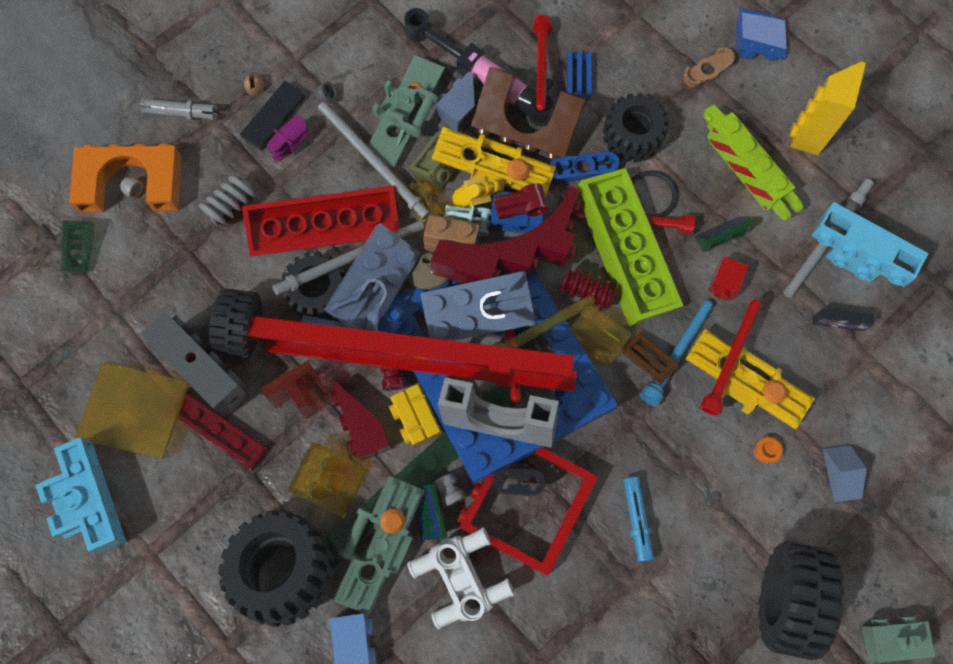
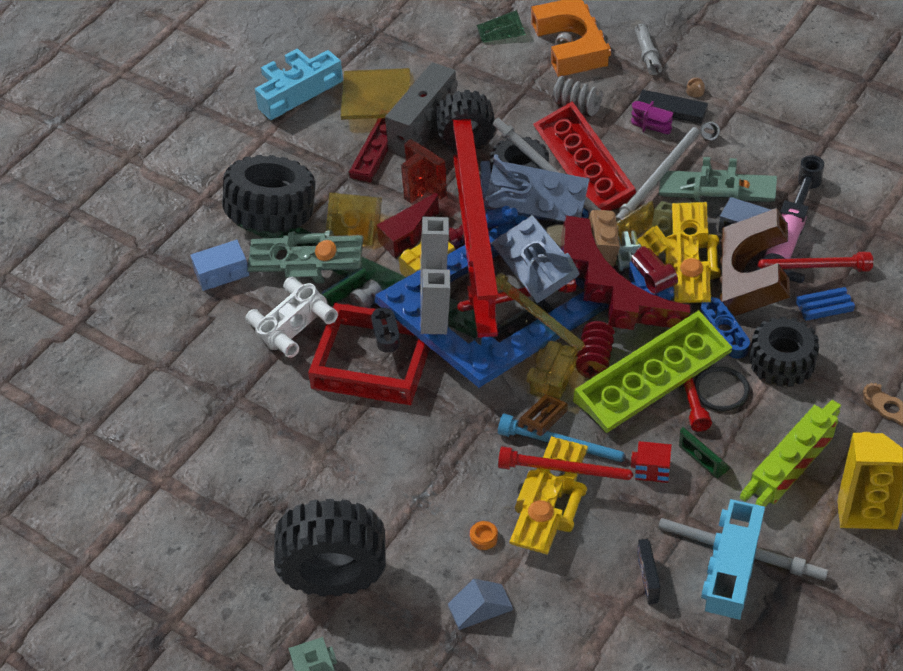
camera: 80 degrees right, 25 degrees down
(645, 551) = (380, 439): dark azure pin -> none

